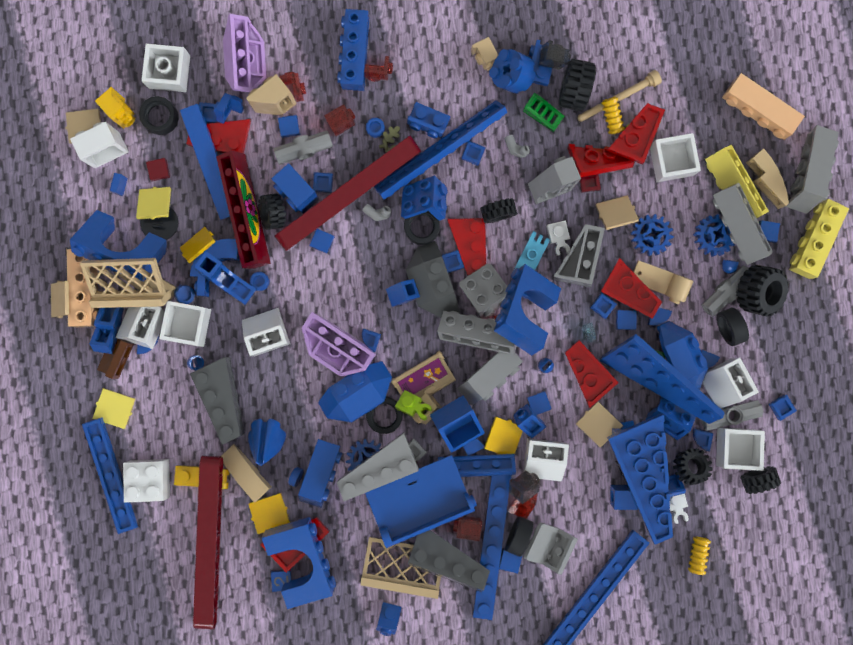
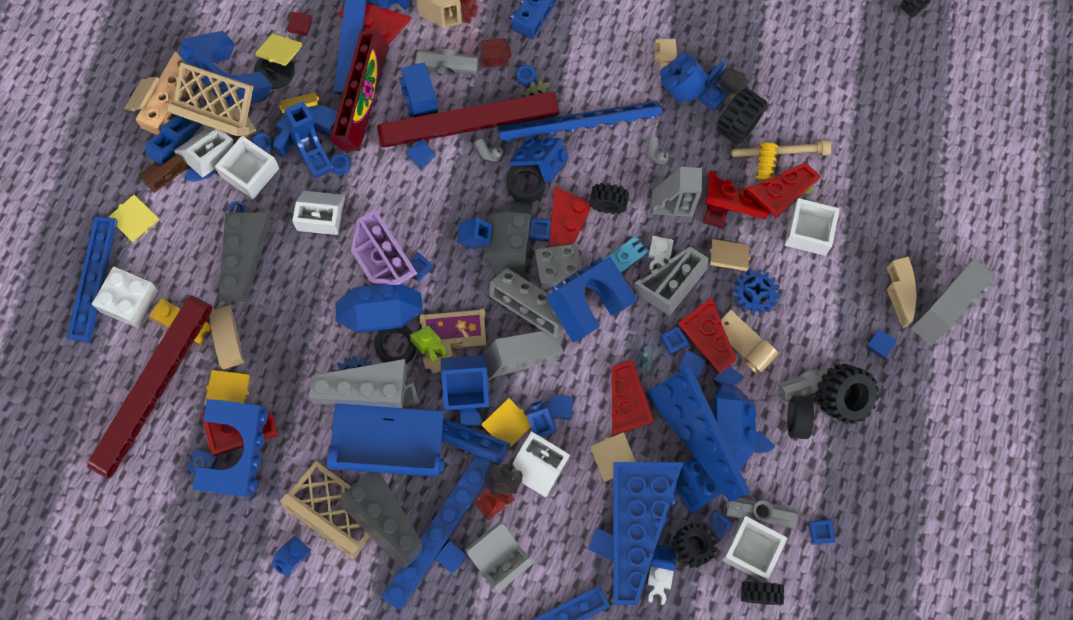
camera: 25 degrees right, 15 degrees down
(118, 184) = (255, 19): blue tile -> none
(265, 440) = (265, 312): blue hat -> none
(272, 211) = (386, 102): black tyre -> none
(289, 126) = (443, 38): blue tile -> none
(295, 477) = (273, 364): blue tile -> none
(320, 473) = (294, 372): blue wedge -> none
(323, 182) = (449, 101): blue tile -> none
(377, 73) = (555, 28): clear red bracket -> none
(428, 120) = (581, 91): blue bracket -> none
(468, 528) = (423, 498): clear red brick -> none
(473, 153) = (611, 139): blue tile -> none
(519, 536) = (472, 529): black tyre -> none
(539, 117) = (692, 134): green slope -> none
(542, 363) = (587, 376): blue hinge -> none
(707, 239) = (815, 313): blue gear -> none
(729, 171) = (865, 281): light yellow brick -> none
(729, 266) = (825, 359): blue hinge -> none
(729, 383) = (772, 475): white slope -> none
(742, 223) = (853, 316): light grey brick -> none
(763, 107) = (924, 219): light nougat brick -> none
(818, 239) = (932, 373): light yellow brick -> none

